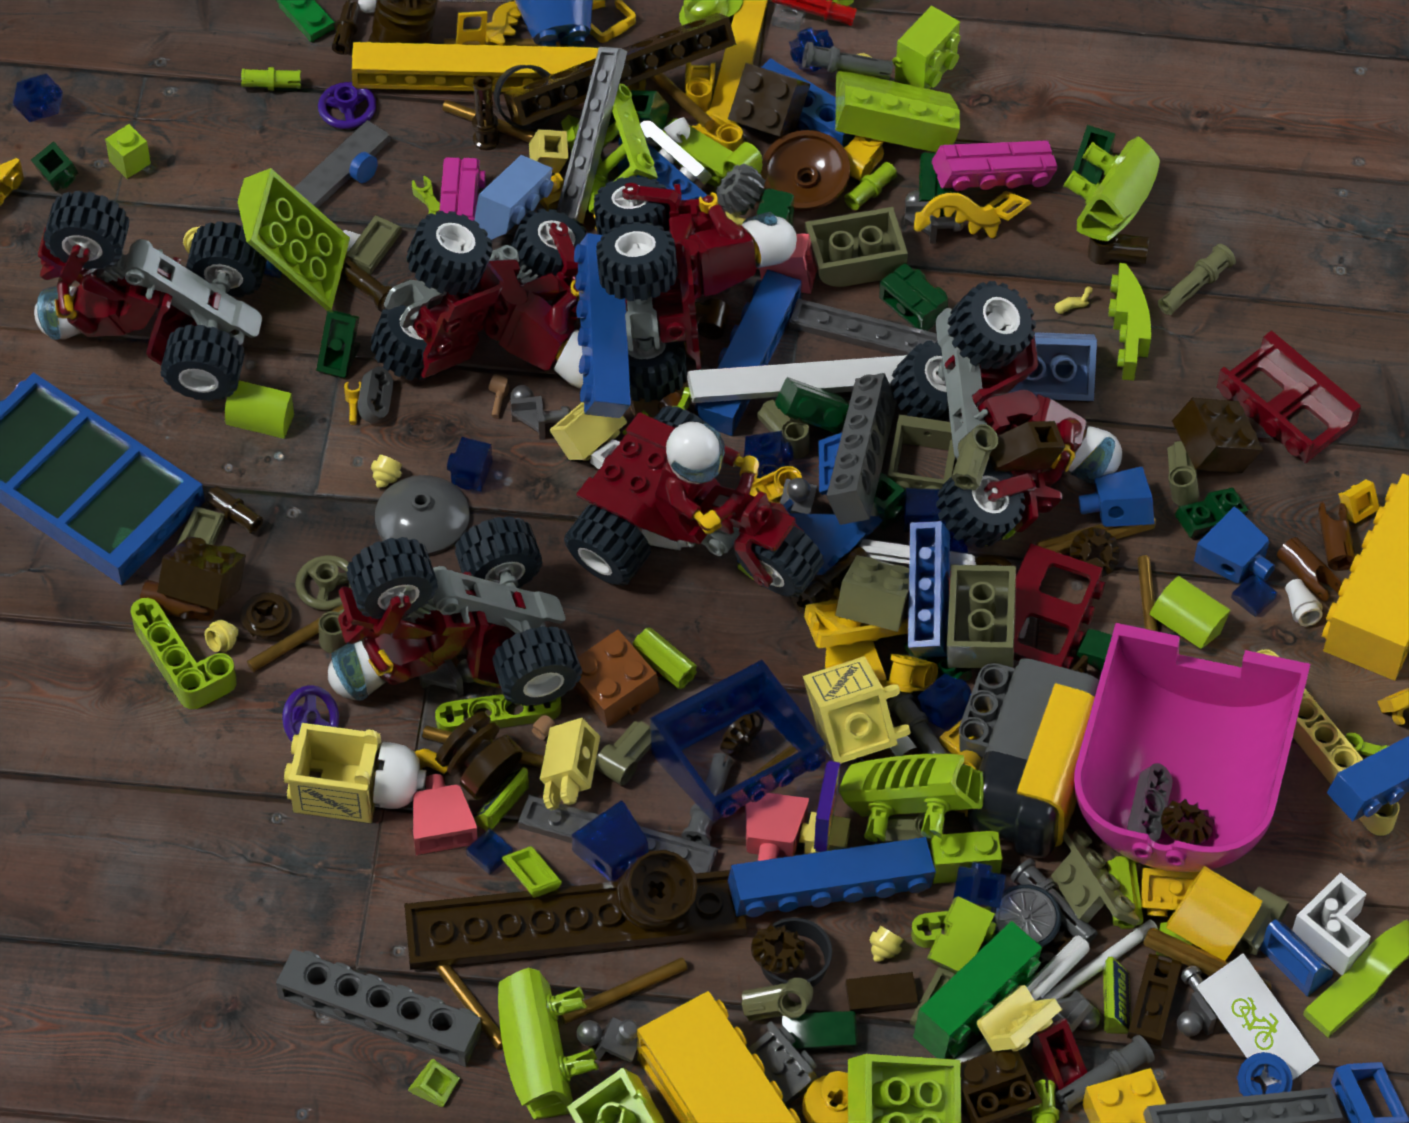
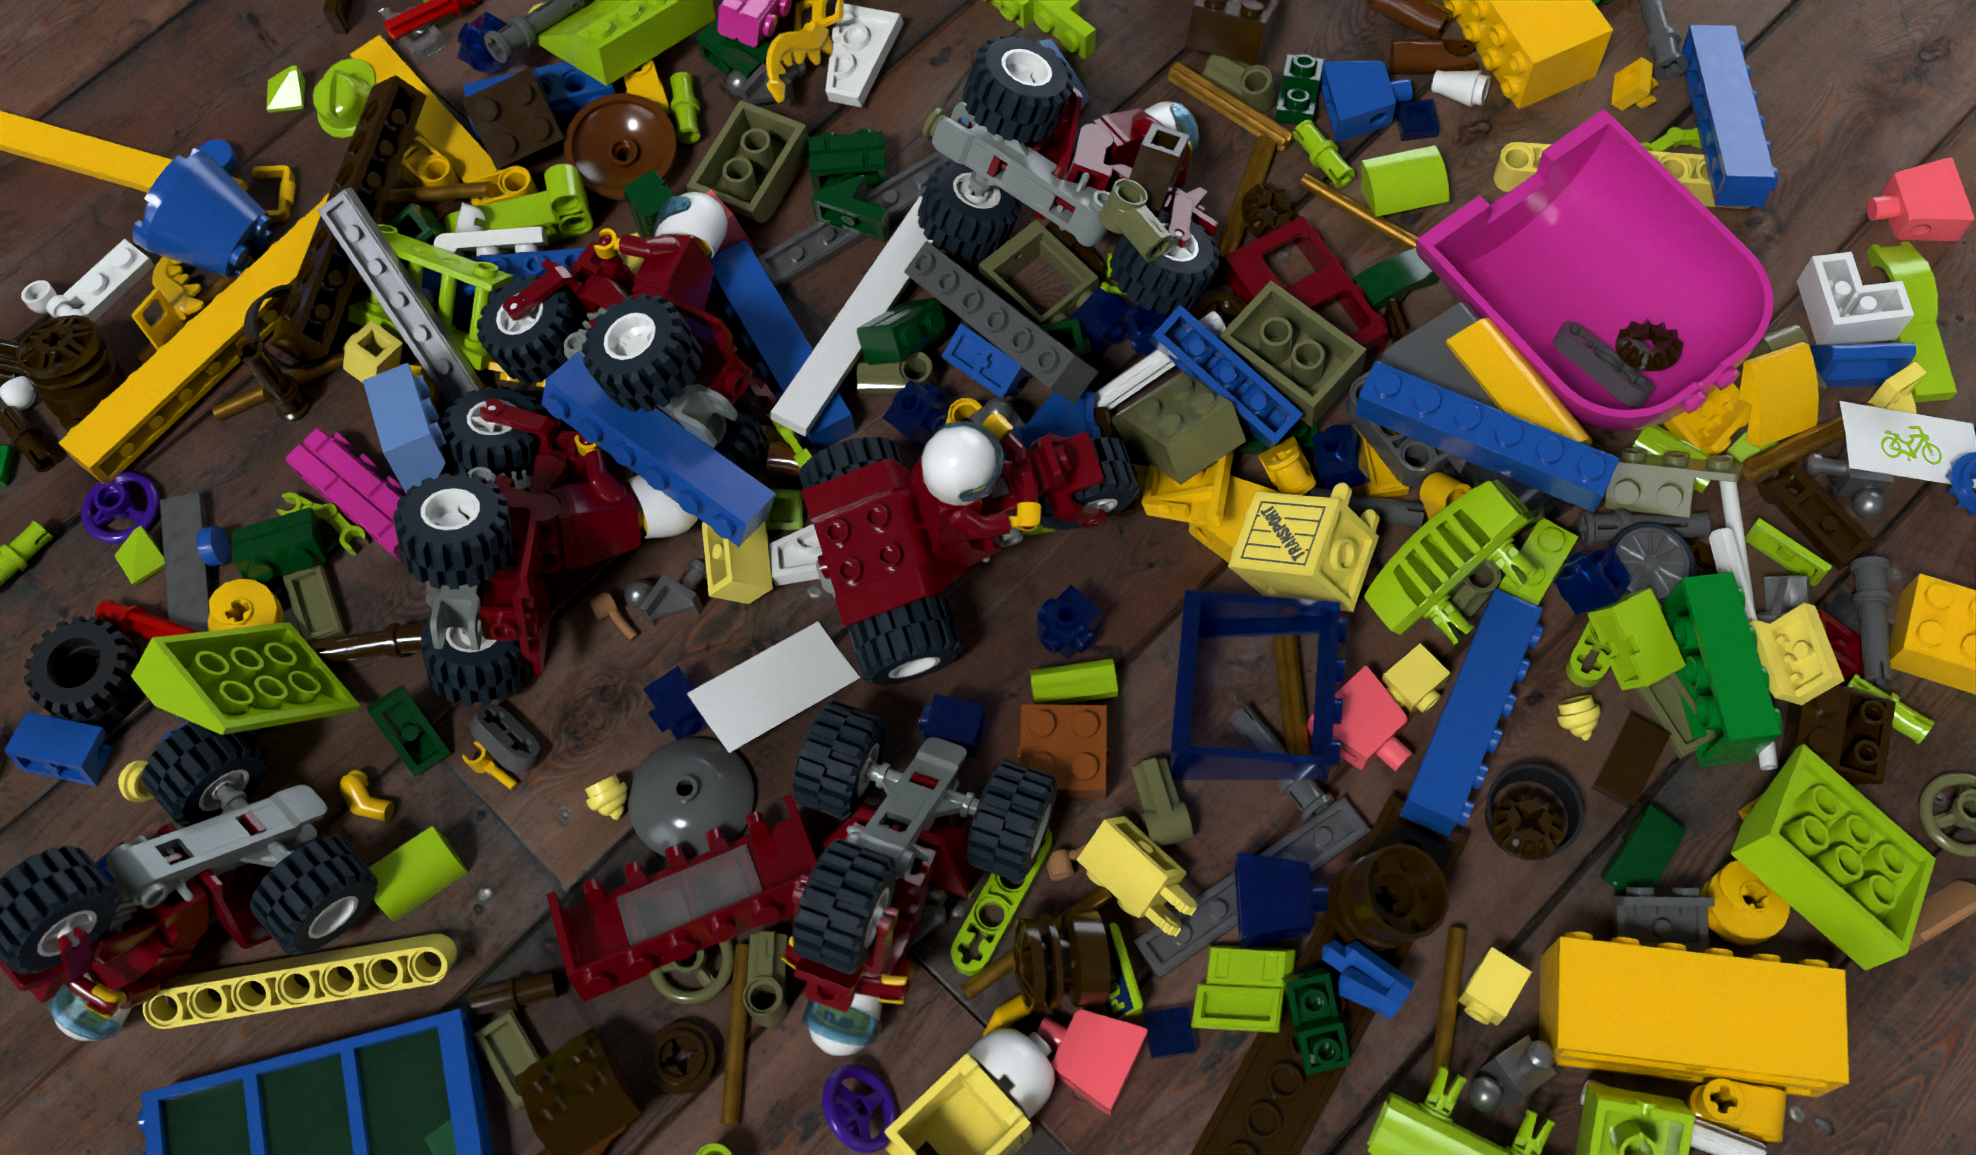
camera: 45 degrees left, 10 degrees up
(166, 406) = (284, 992): none -> light yellow beam
(182, 189) = (59, 748): none -> blue hinge
(221, 636) = (667, 1129): light yellow plate -> none
(228, 149) = (66, 653): none -> black tyre
(278, 352) = (359, 800): none -> yellow arm
(285, 164) = (135, 621): none -> red axle
(321, 537) = (683, 907): none -> dark red window
(326, 138) = (140, 556): none -> lime slope
(341, 208) = (243, 605): none -> yellow piece
(390, 198) = (279, 546): none -> dark green brick
(504, 494) = (772, 686): none -> white sticker
(556, 912) = (1316, 1021): none -> dark green slope
(564, 863) = (1249, 966): none -> lime tile
(581, 611) = (954, 722): none -> clear blue brick
(603, 918) = (1368, 978): none -> blue rock
(658, 996) = (1493, 987): none -> light yellow brick
(698, 626) = (1068, 623): none -> clear blue brick
(740, 189) = (597, 207): dark grey gear -> none
(741, 733) = (1232, 674): dark brown gear -> none
(775, 1001) = (1591, 859): olive piece -> none
(826, 806) = (1415, 654): dark purple tile -> none
(876, 319) = (846, 208): none -> dark green slope
(1000, 742) = (1486, 436): none -> blue brick
(1005, 249) = (859, 52): none -> white wing
(1073, 302) = (968, 37): light yellow piece -> none
(1120, 499) = (1235, 146): blue torso -> none
(1160, 481) = (1229, 105): none -> pearl gold axle
(1171, 555) = (1323, 154): none -> lime pin
(1293, 993) = (1896, 391): none -> light yellow tile

